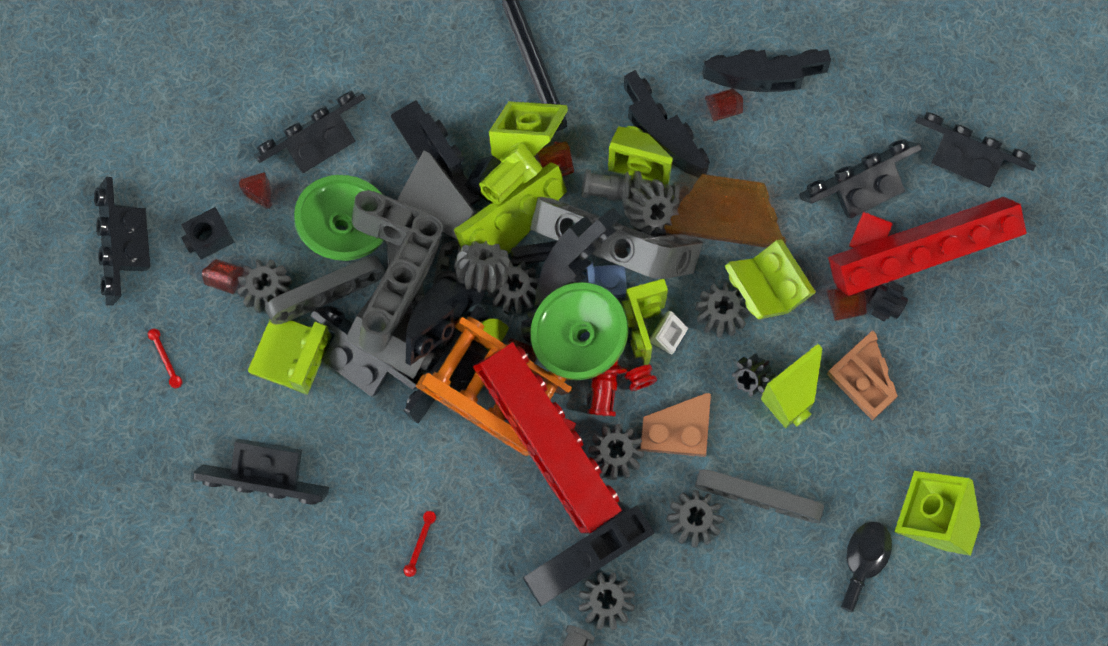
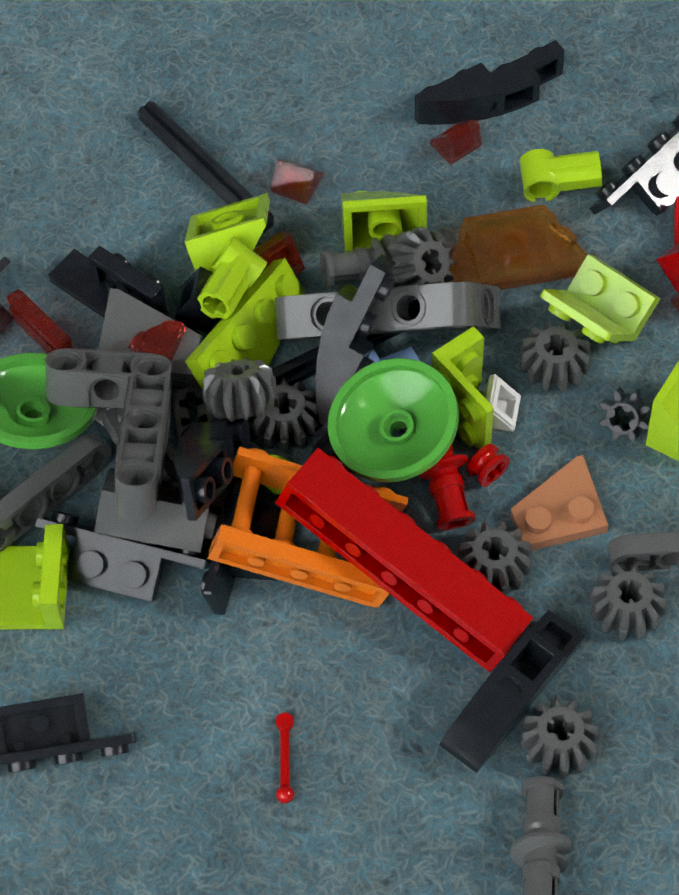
camera: 20 degrees left, 15 degrees down
(370, 157) = (37, 323): none -> clear red tile
(442, 206) = (160, 339): none -> clear red tile
(595, 96) = (295, 180): none -> slope
(670, 133) = (368, 173): black slope -> none
(780, 158) = (547, 174): none -> lime piece

